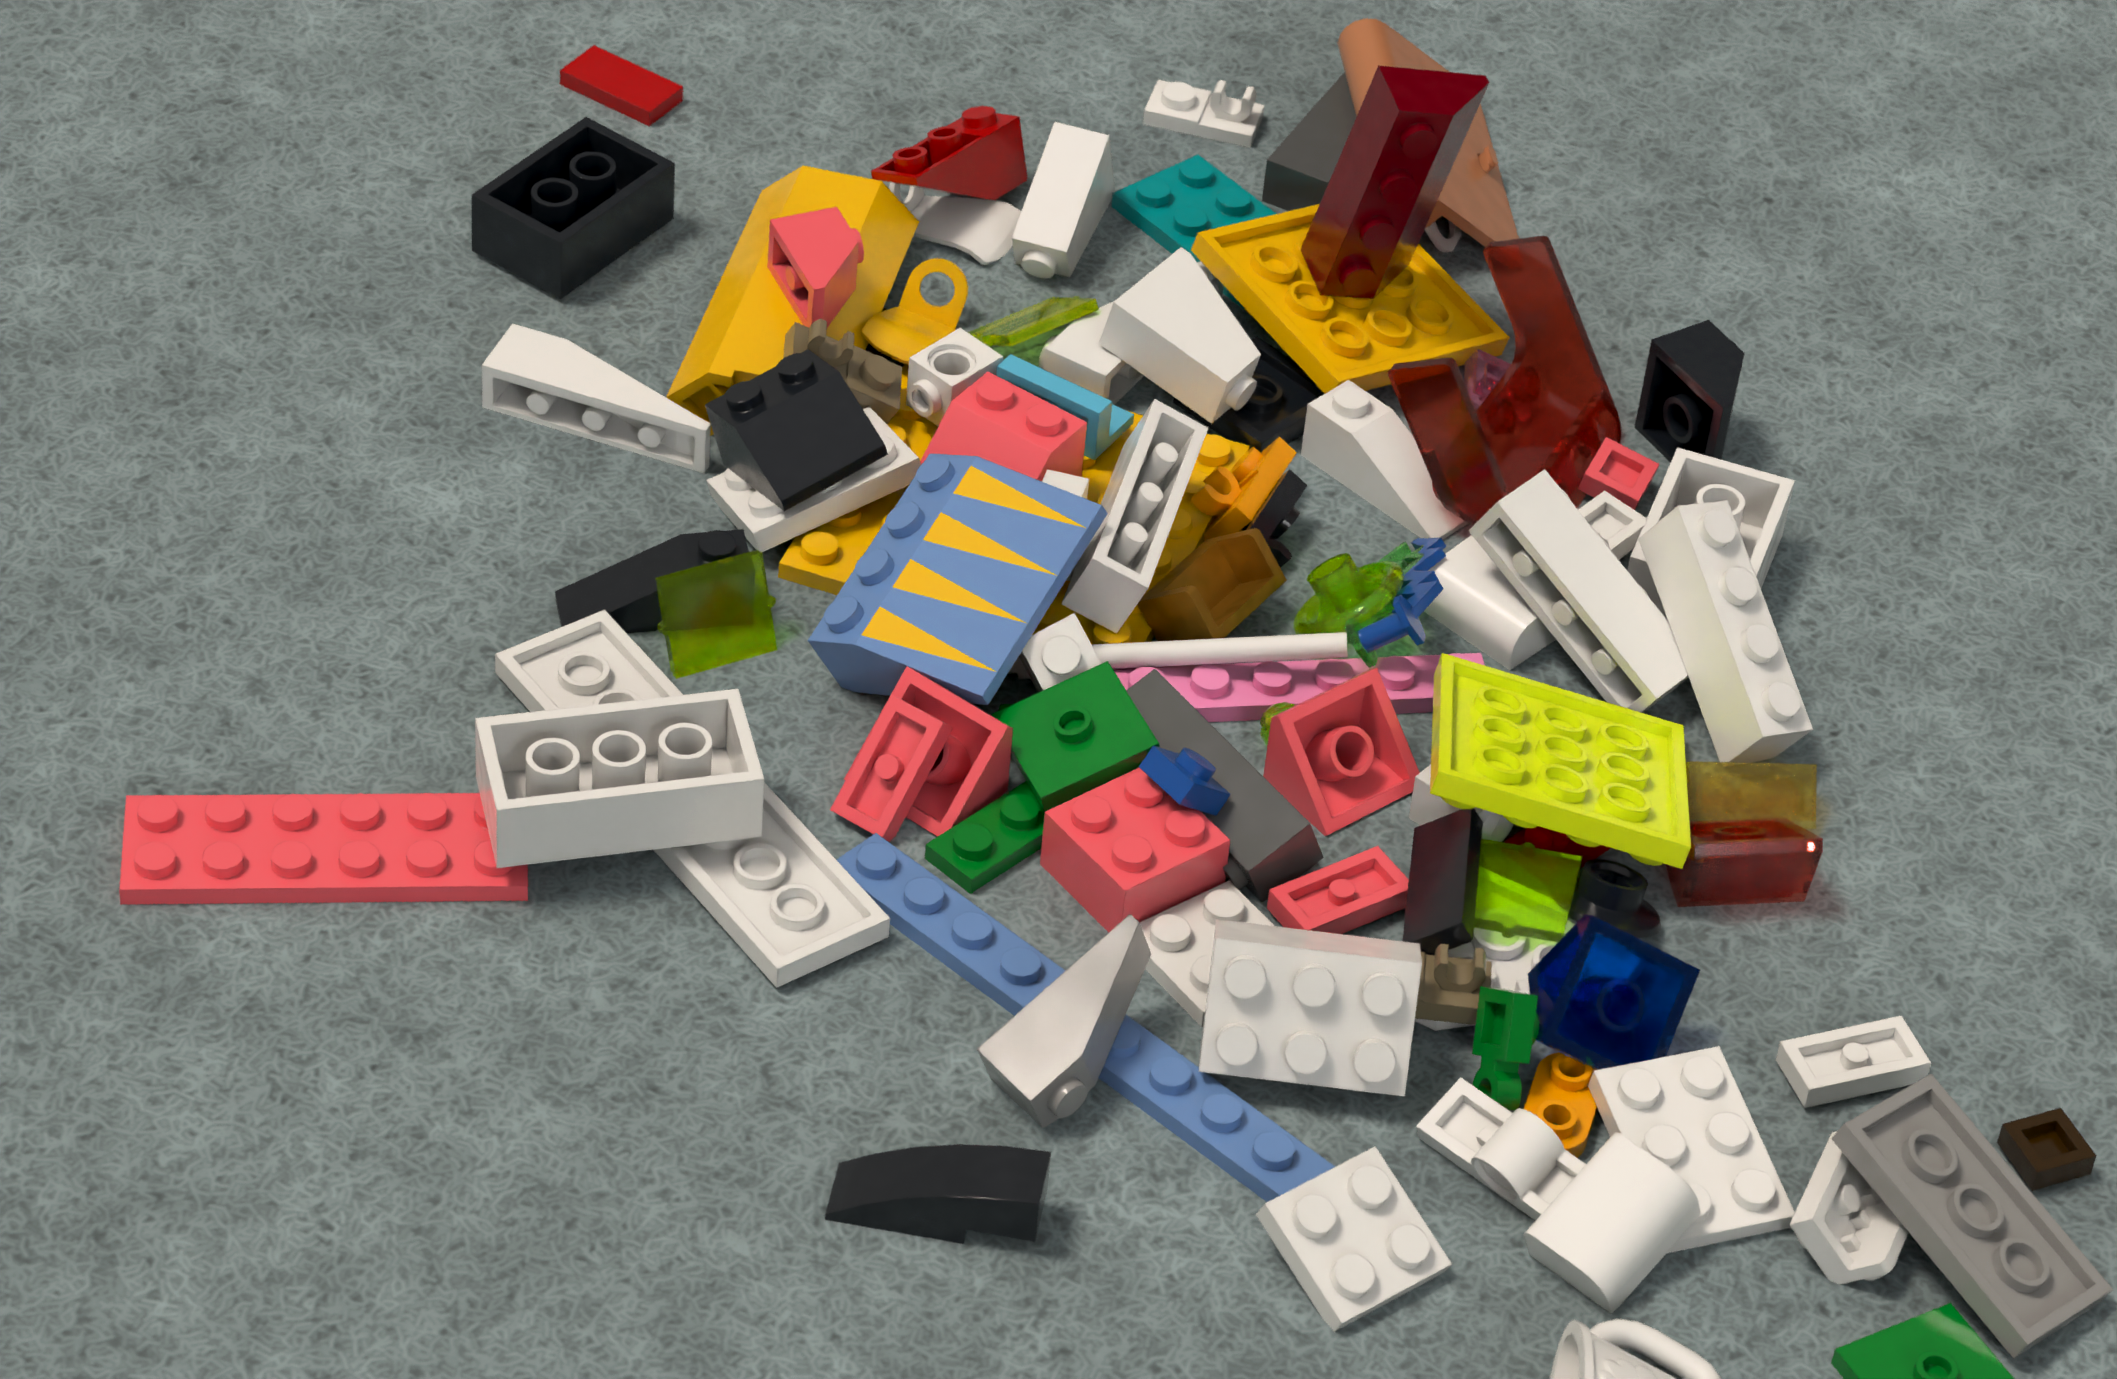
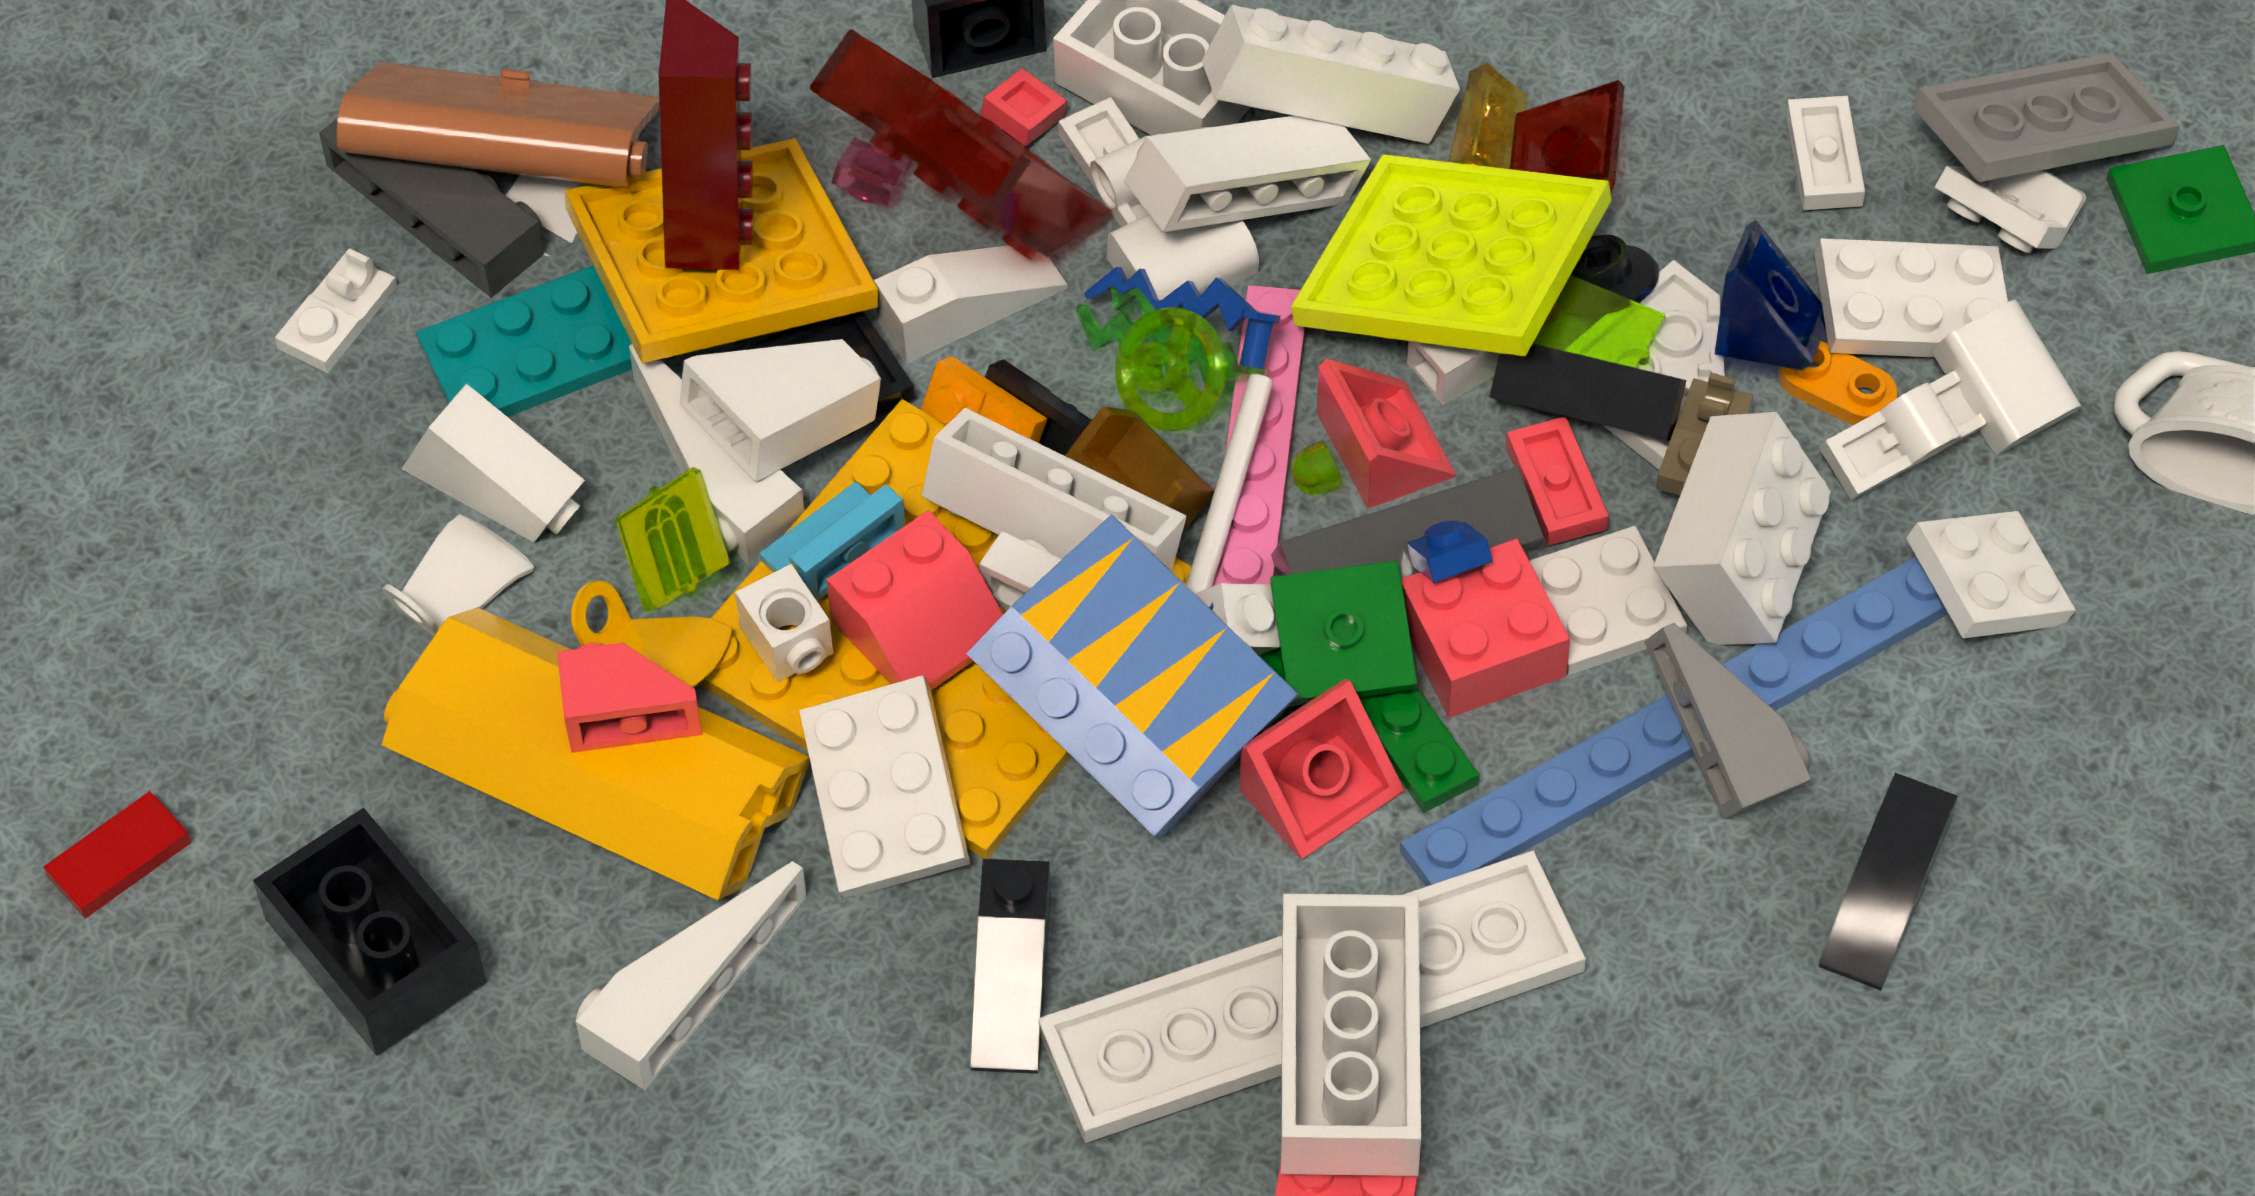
camera: 70 degrees left, 15 degrees up
(716, 614) = (1080, 913): clear neon green piece -> none
(793, 430) = (867, 776): black slope -> none
(869, 376) = (758, 718): dark tan plate -> none
(891, 768) = (1342, 803): coral plate -> none
(970, 157) = (408, 544): red slope -> none
(1504, 1038) = (1796, 392): green plate -> none
(2046, 1149) = (1947, 48): dark brown plate -> none

